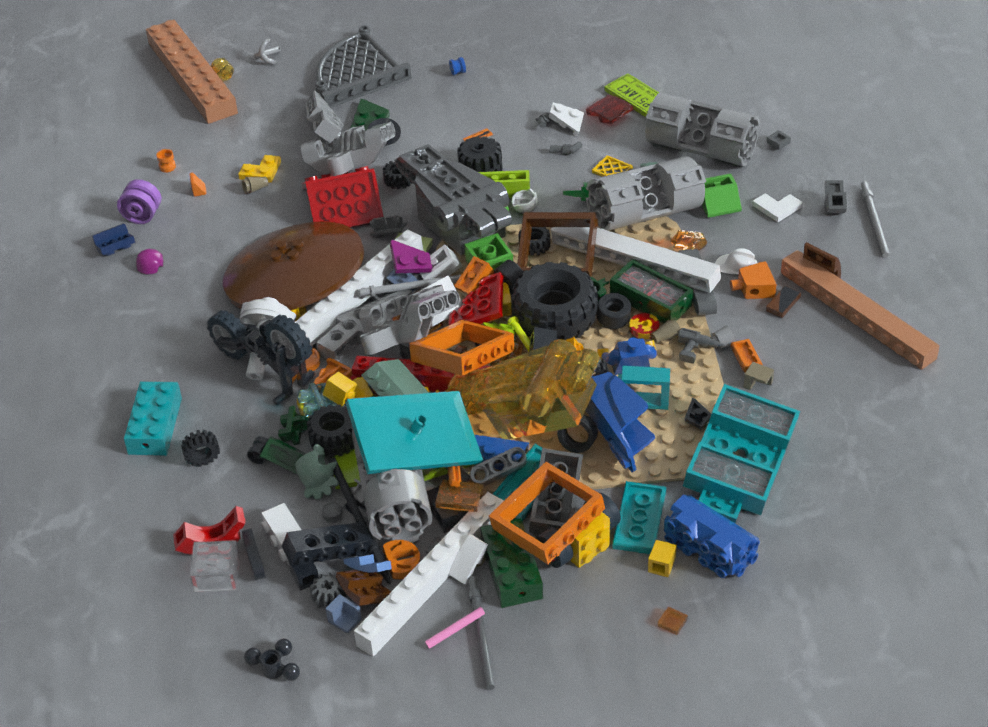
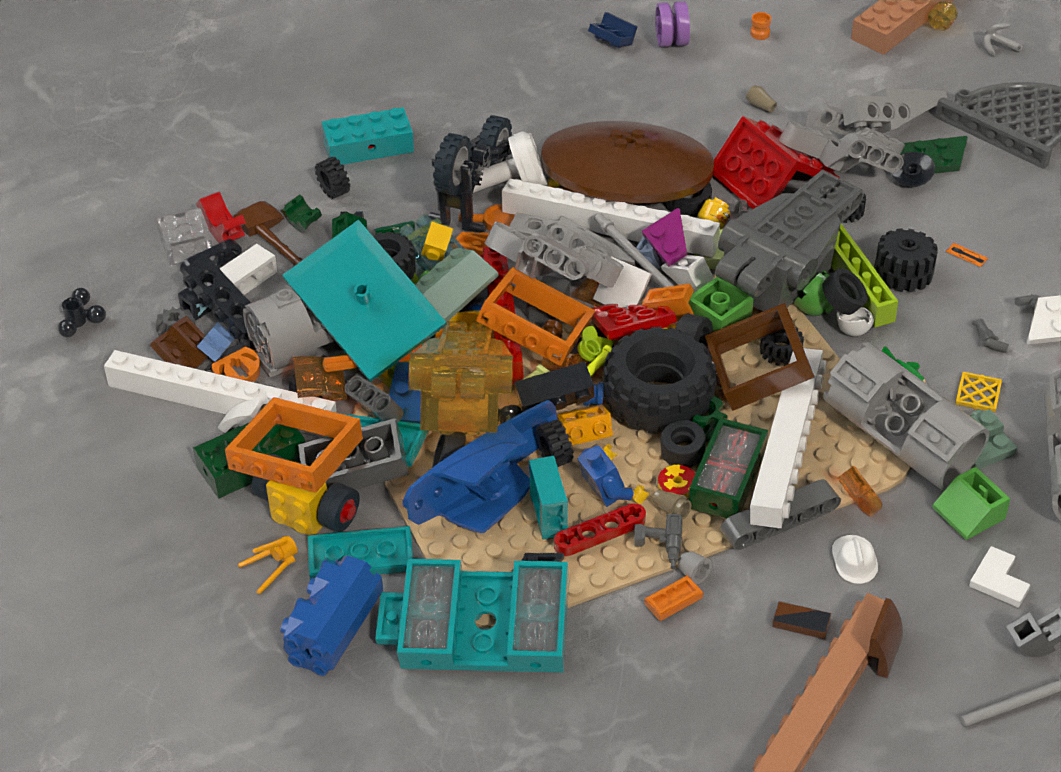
camera: 70 degrees right, 0 degrees up
(149, 261) = (598, 64): magenta hair -> none
(197, 185) = (735, 59): orange slope -> none
(213, 510) = (259, 219): none -> reddish brown piece
(233, 482) = (300, 214): none -> dark green piece
(267, 167) = (789, 101): yellow plate -> none
(343, 613) = (147, 335): sand blue panel -> none
(376, 239) = (715, 210): none -> yellow head
(455, 627) = (151, 432): bright pink bar -> none
(475, 598) = (152, 457): dark grey bar -> none
(515, 190) = (841, 281): none -> black tyre
(624, 562) = (281, 549): none -> light orange plant
(662, 558) = (293, 581): yellow brick -> none
(672, 620) = (211, 616): clear orange tile -> none
(677, 374) = (598, 526): none -> red beam
(755, 281) = (821, 578): orange torso -> none
(758, 373) = (634, 611): dark tan panel -> none

